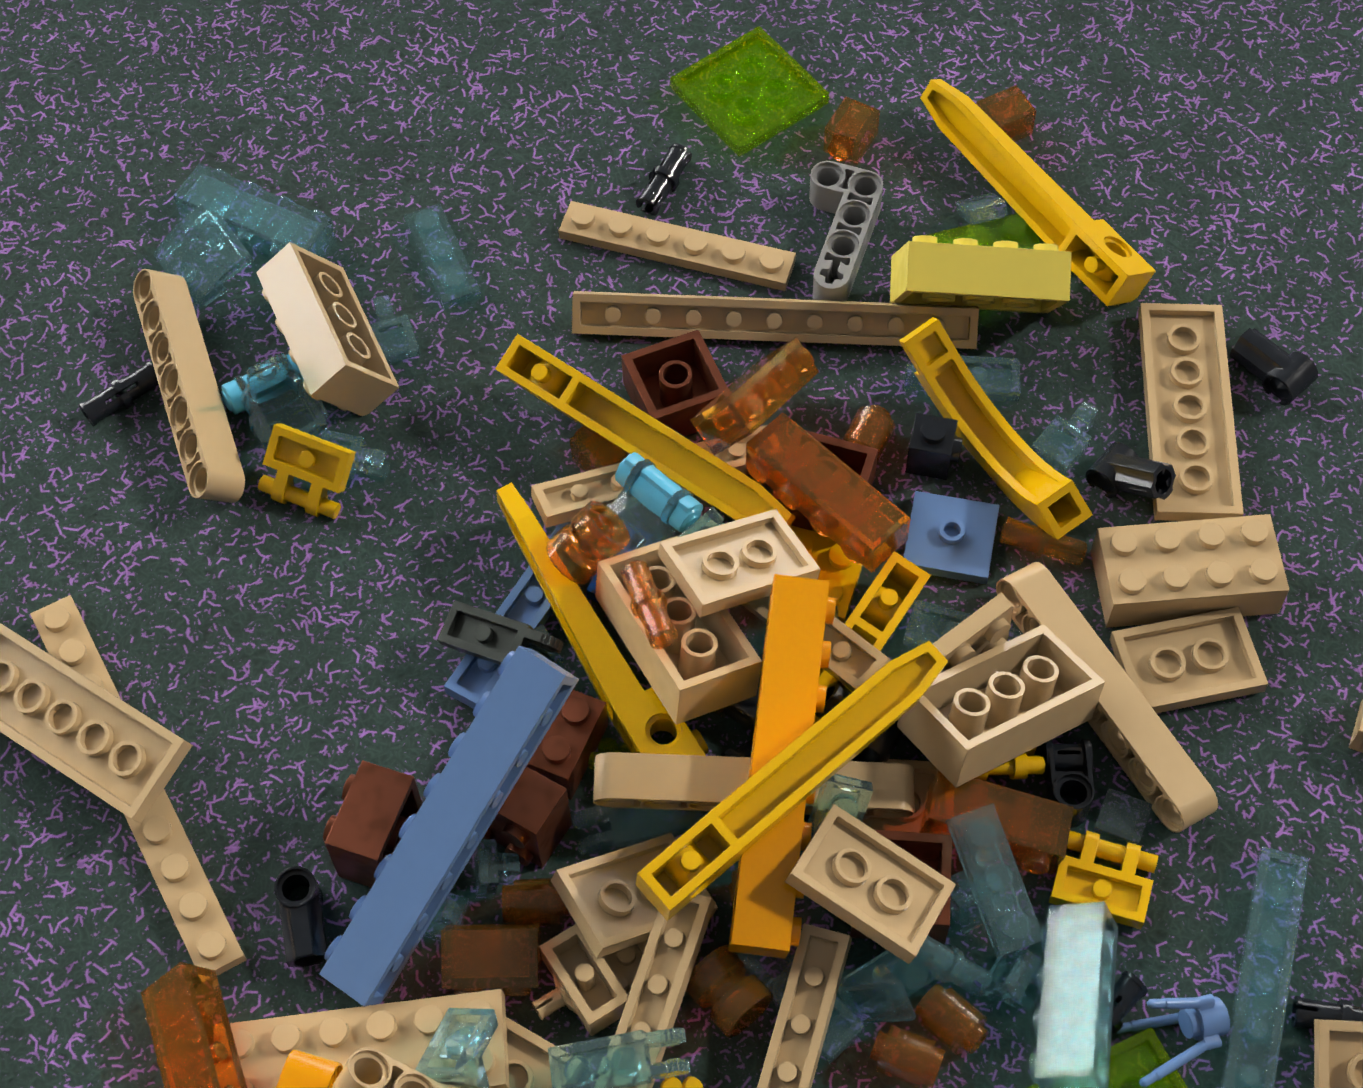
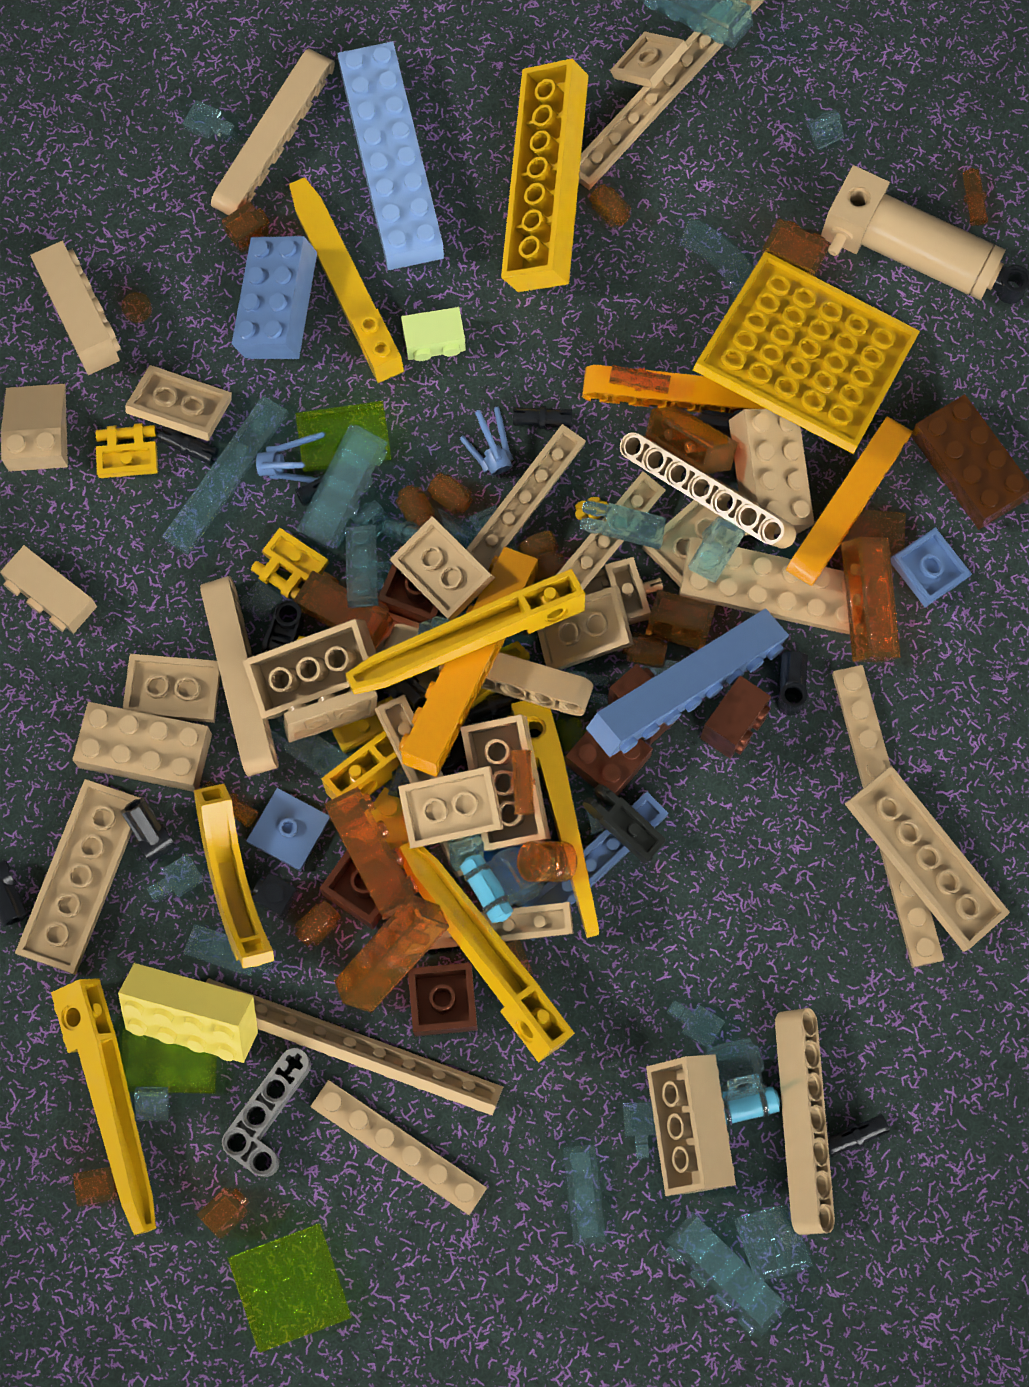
camera: 165 degrees left, 15 degrees up
(309, 459) = (729, 1011): yellow plate -> none
(664, 179) = (388, 1216): black pin -> none

